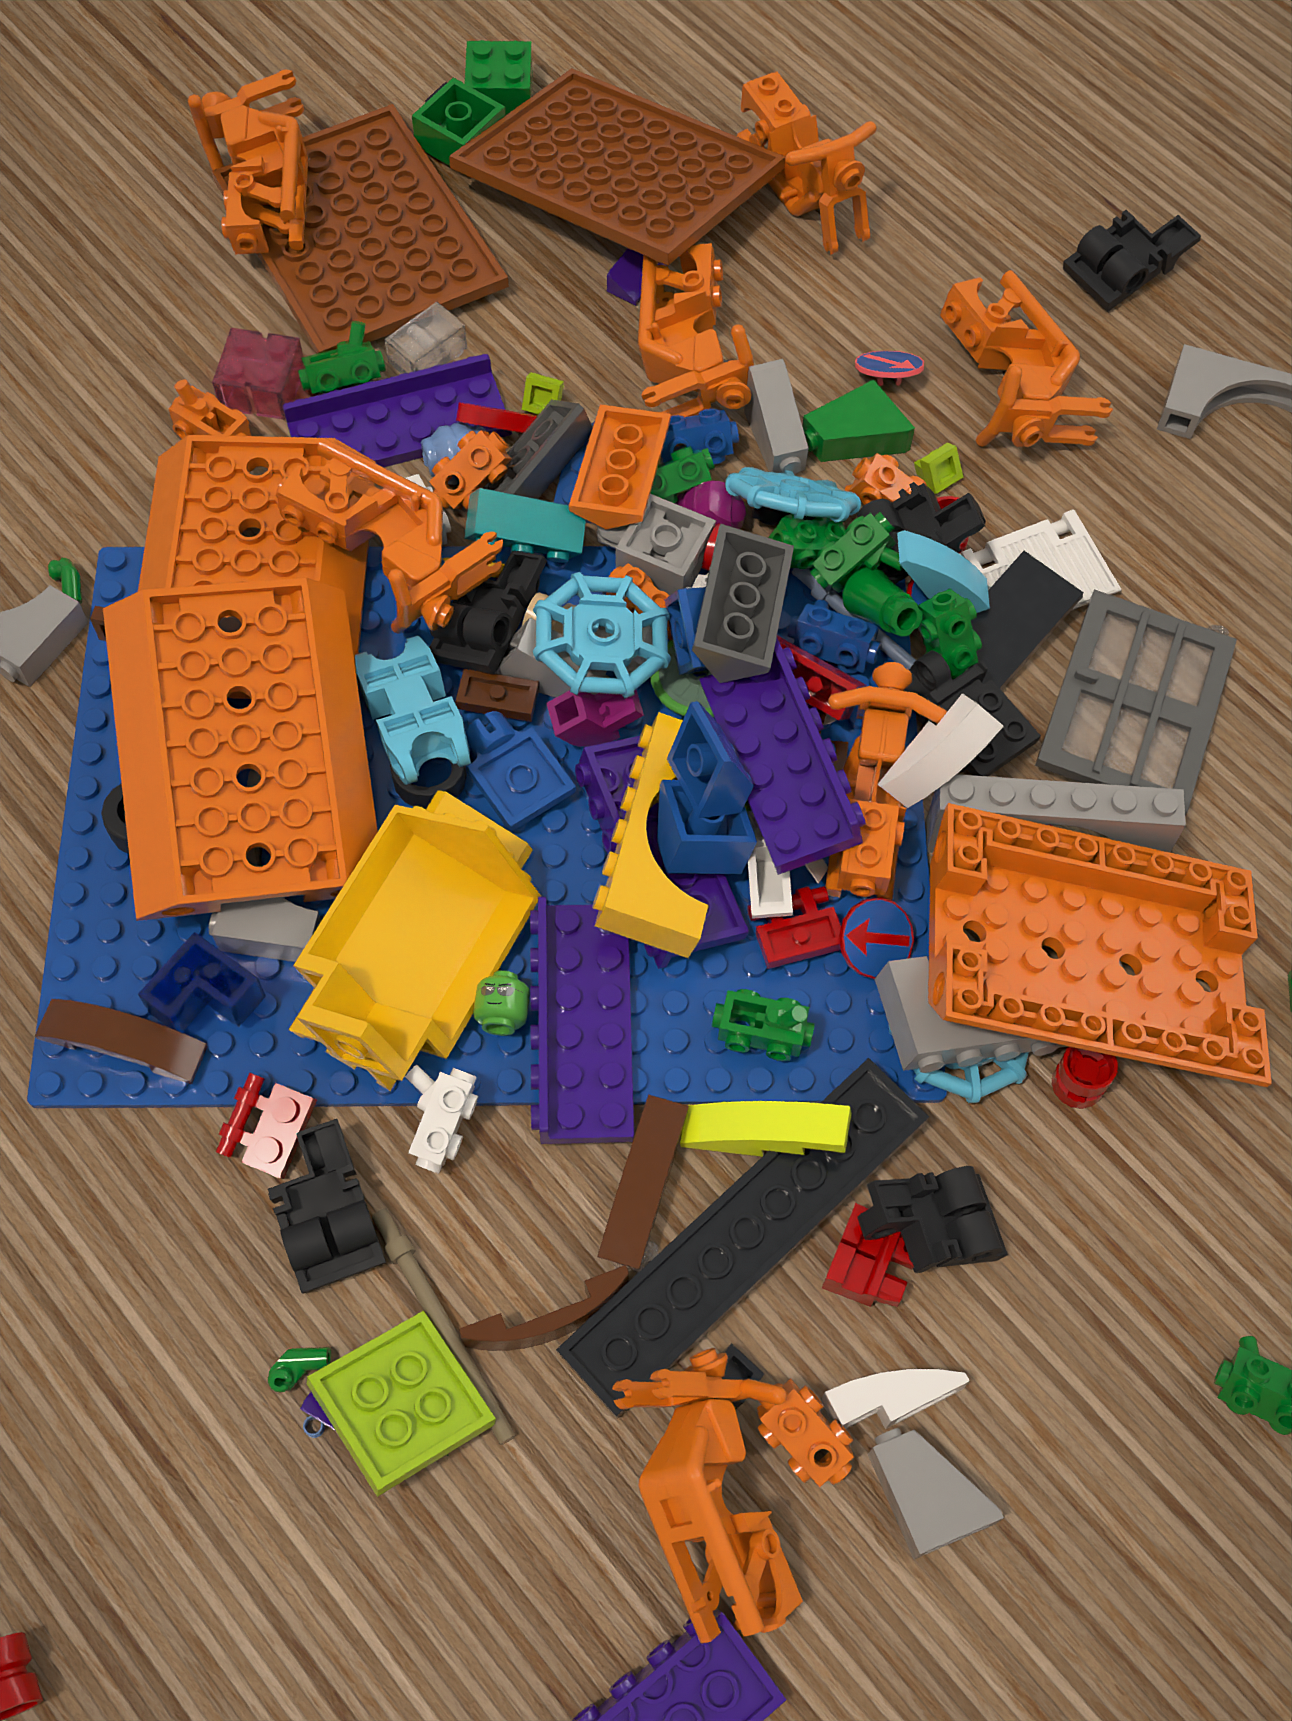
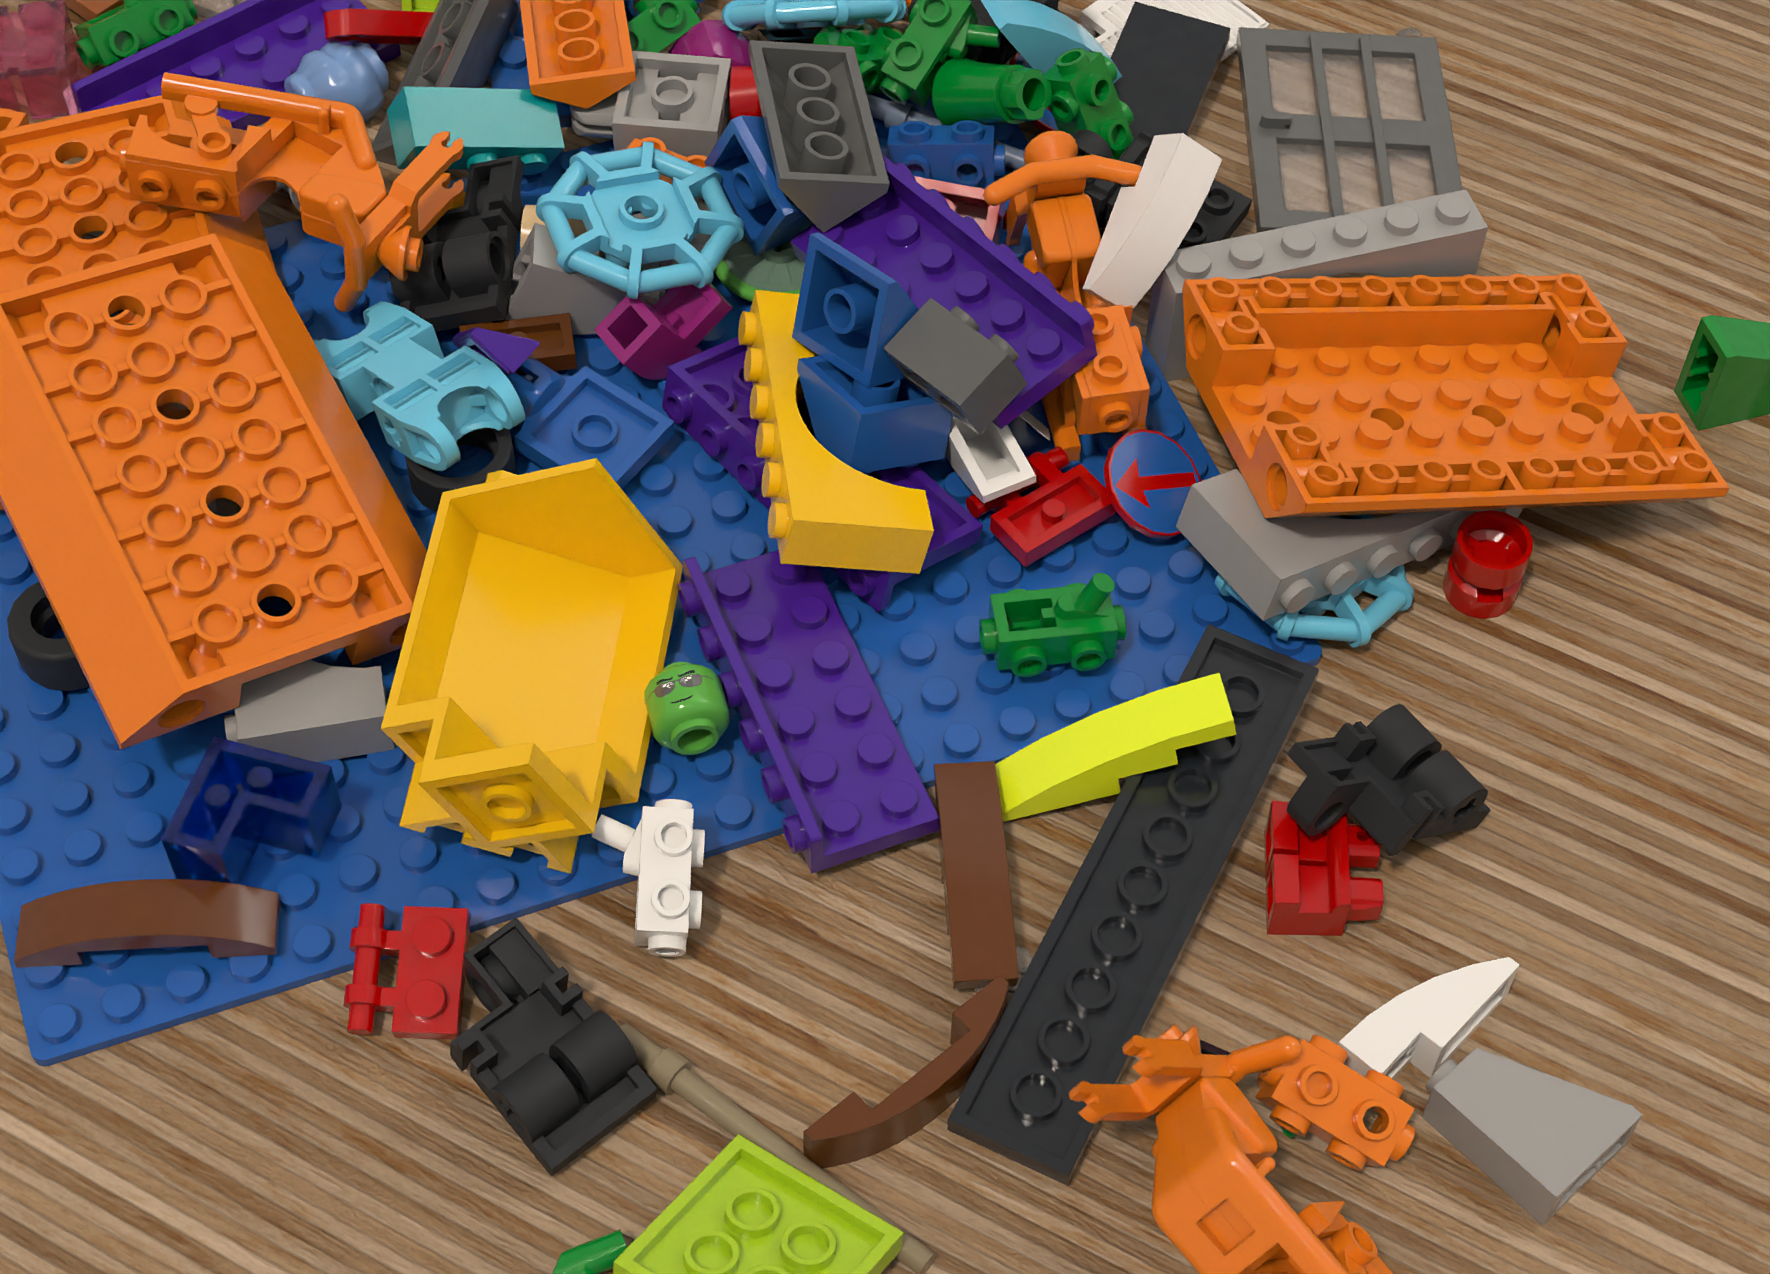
camera: 20 degrees left, 10 degrees down
(471, 704) = (503, 349): none -> dark purple slope
(479, 461) = (376, 76): orange brick -> none
(757, 825) = (957, 364): none -> dark grey brick

